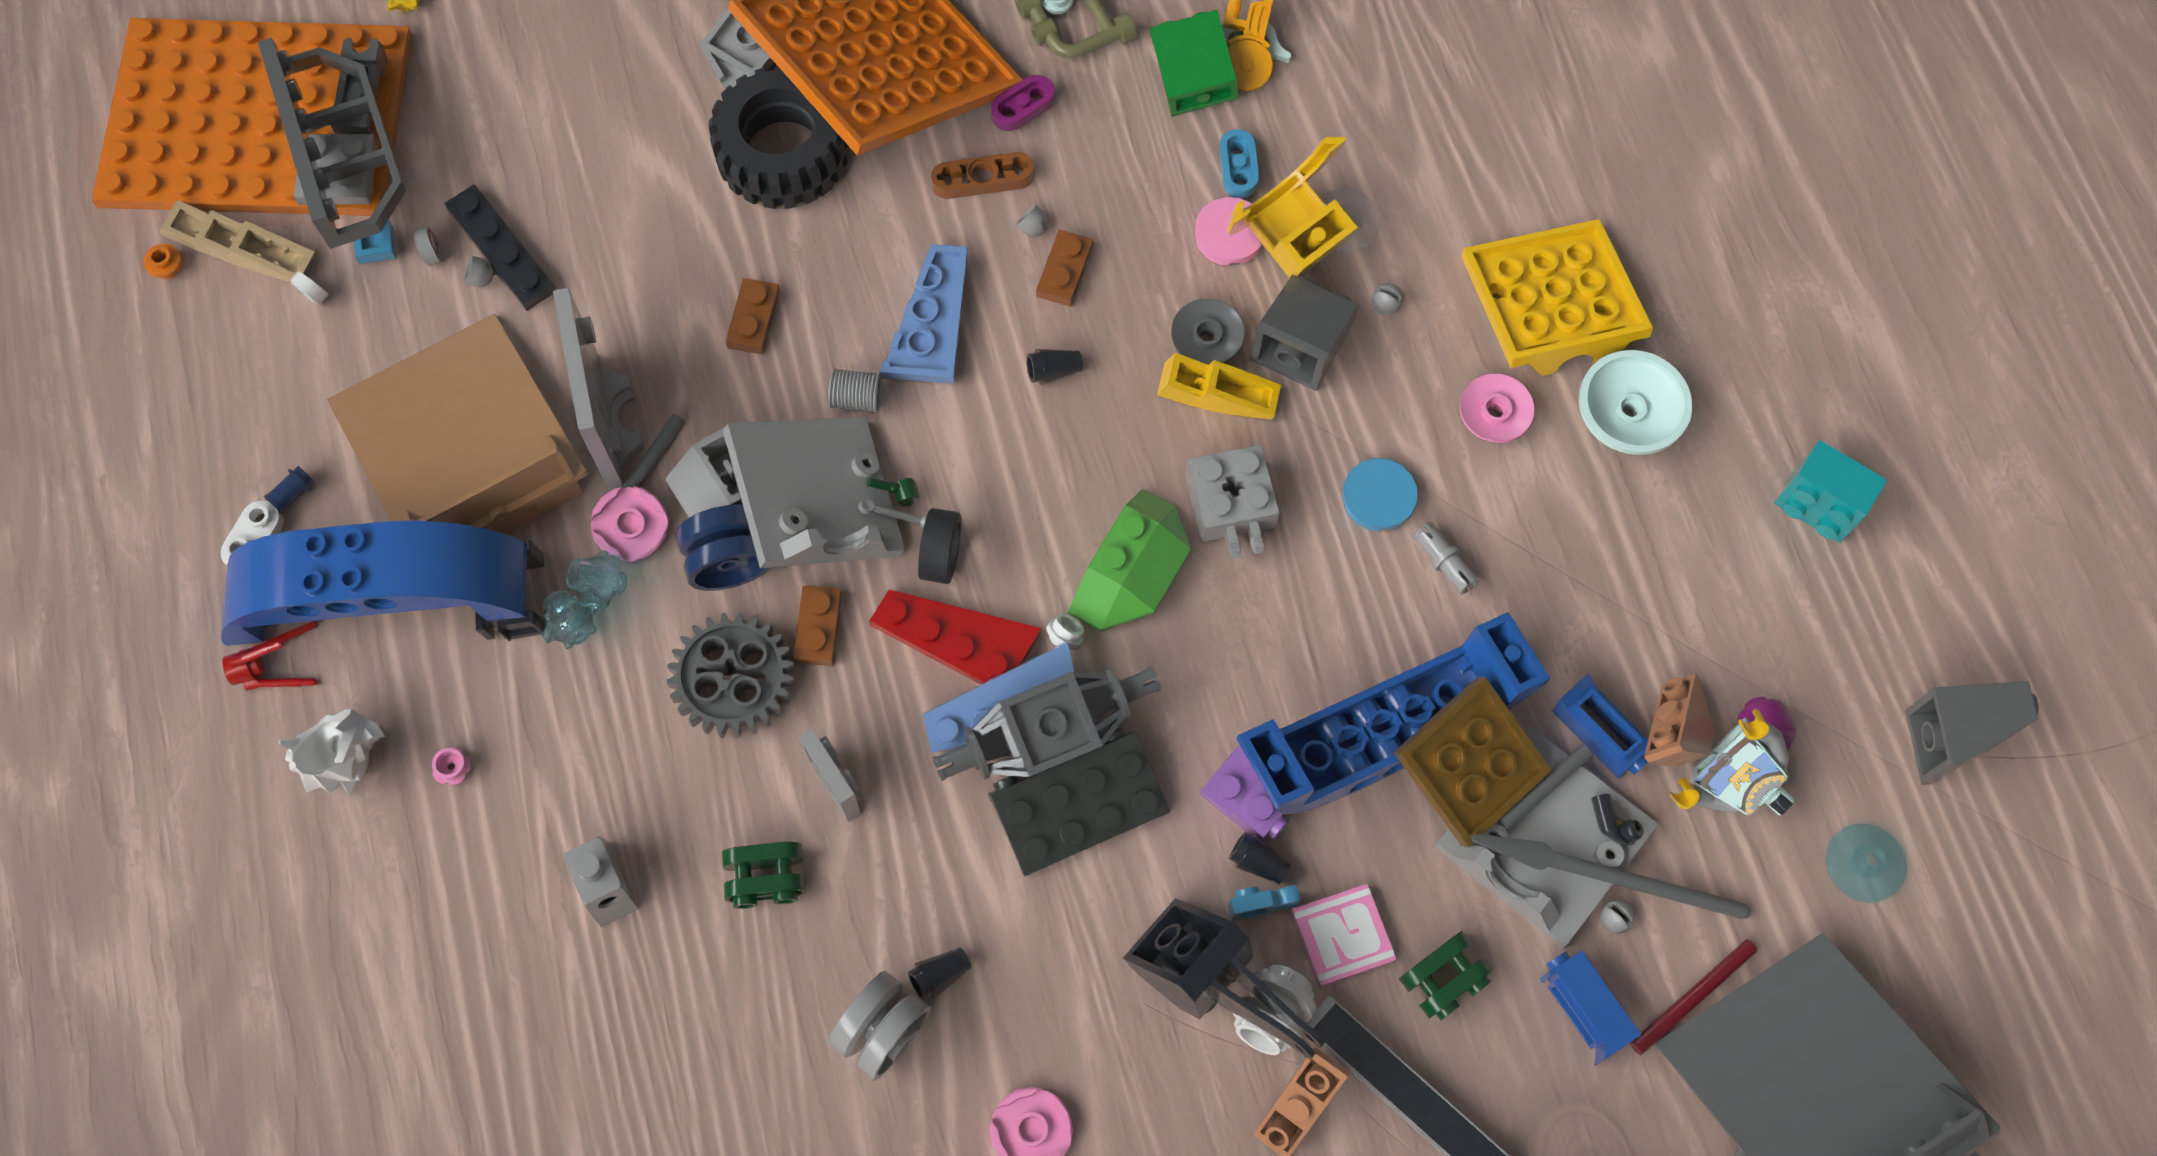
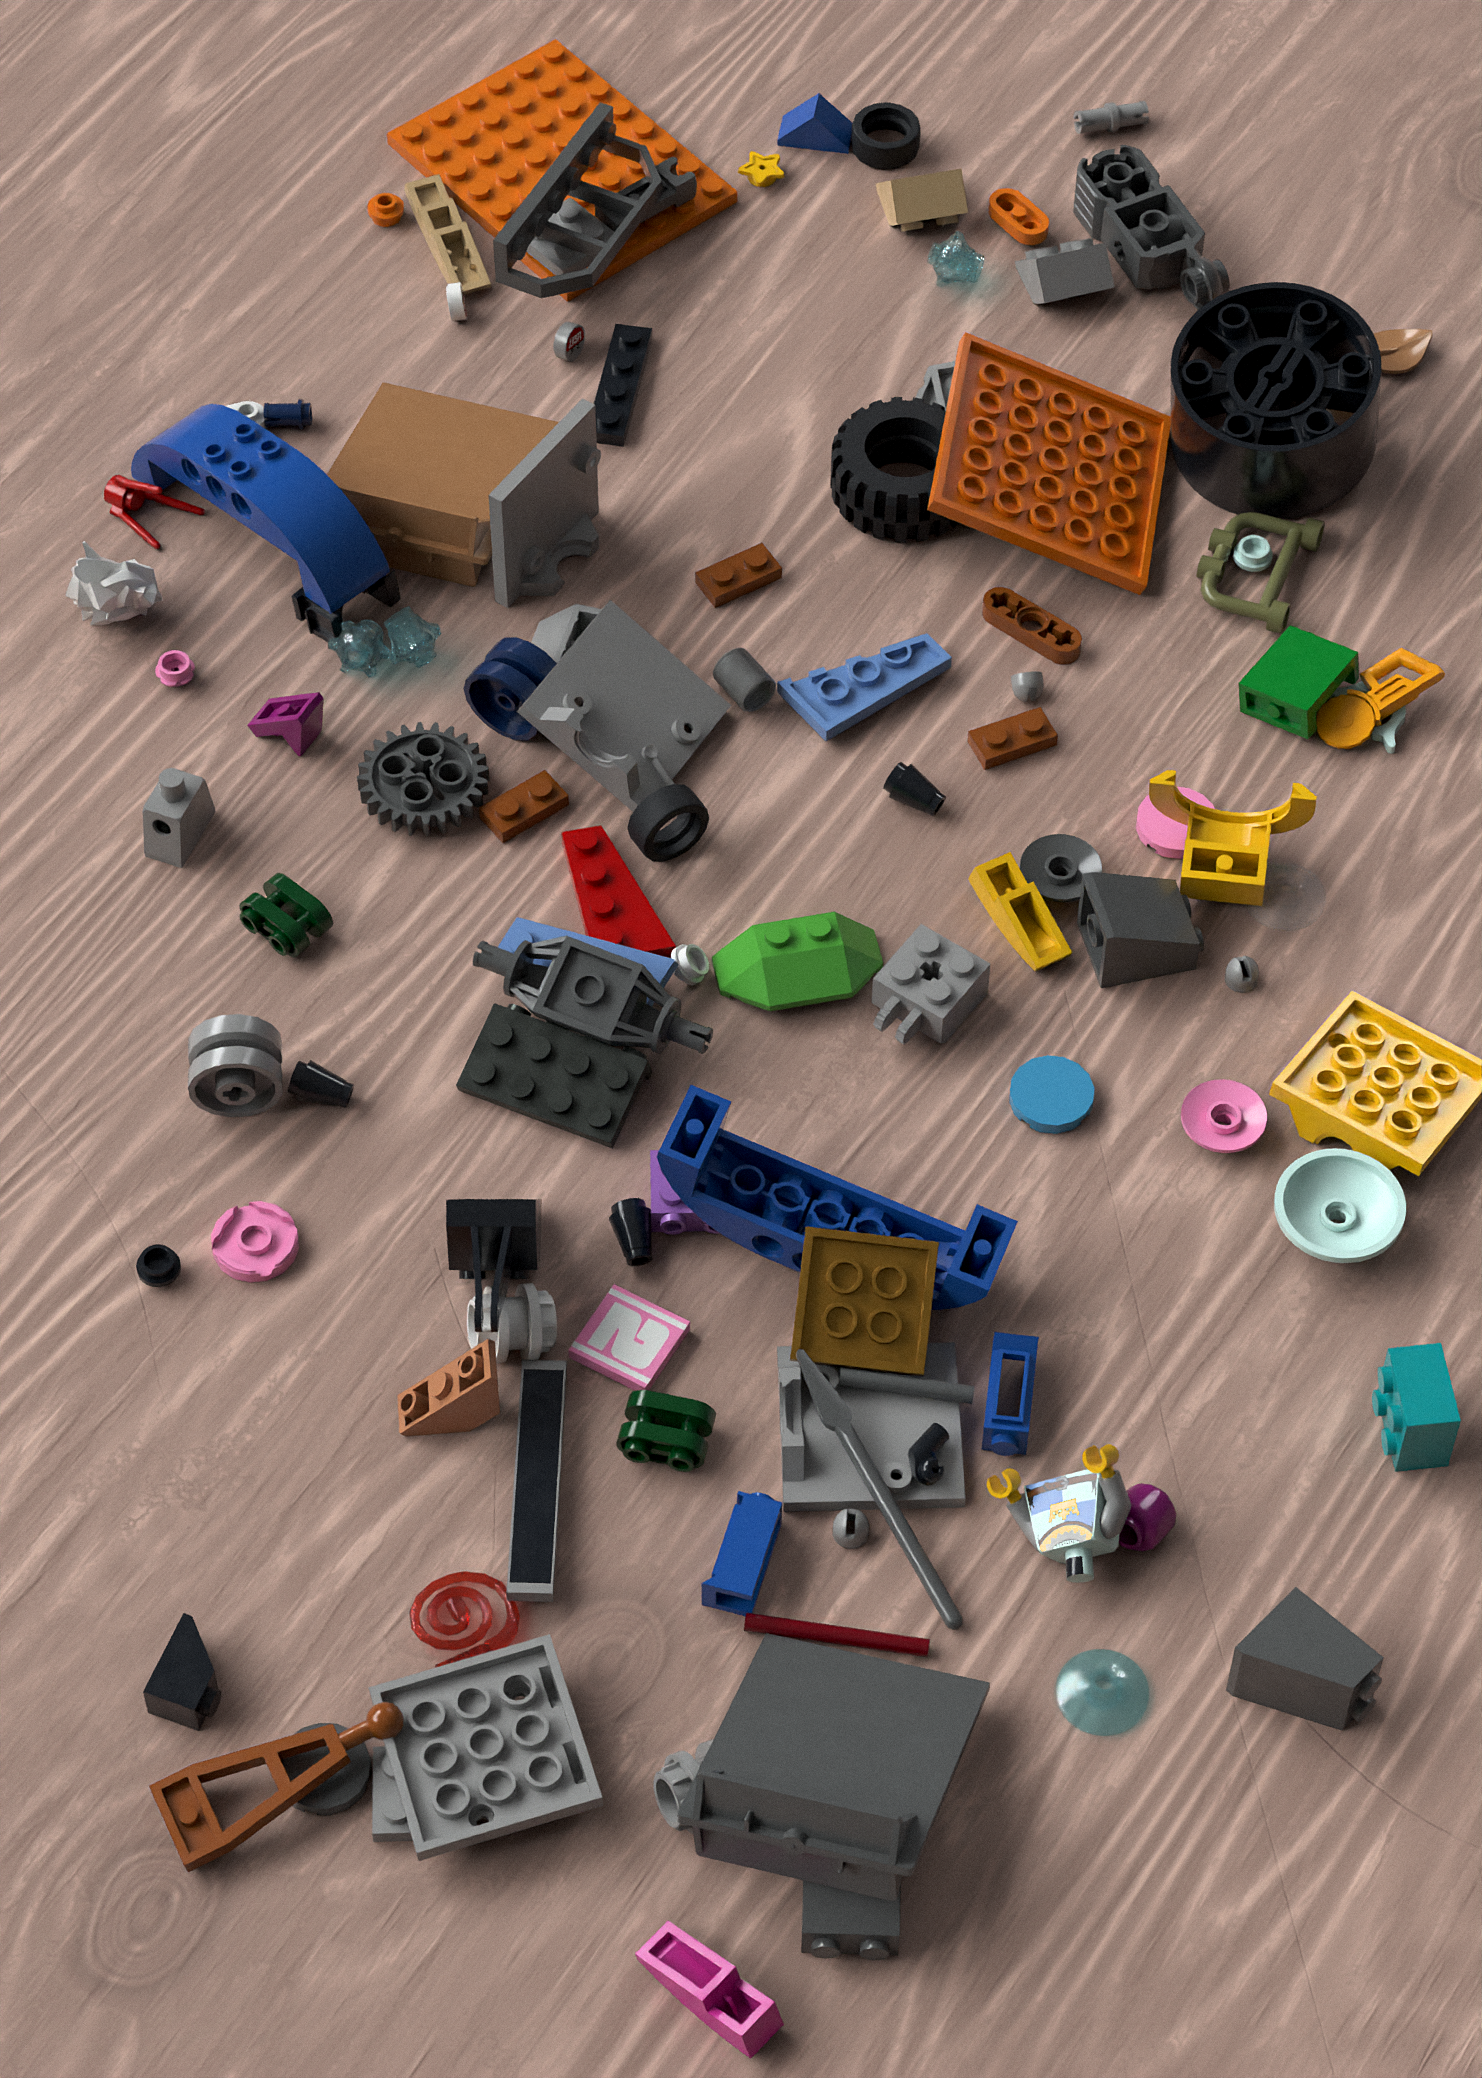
camera: 50 degrees right, 15 degrees down
(376, 247) = (536, 312): dark azure plate -> none
(477, 272) = (582, 386): light grey hinge -> none
(583, 724) = (293, 717): none -> magenta slope
(629, 524) = (475, 625): bright pink tile -> none
(654, 452) = (542, 603): dark grey bar -> none
(826, 765) = (403, 891): light grey plate -> none
(904, 489) = (698, 773): dark green hand -> none
(1020, 103) = (1127, 601): magenta plate -> none
(1238, 166) = (1238, 787): dark azure plate -> none
(1252, 903) = (590, 1253): dark azure plate -> none
(1446, 558) = (1043, 1178): light grey pin -> none
(1681, 724) = (1058, 1443): nougat slope -> none

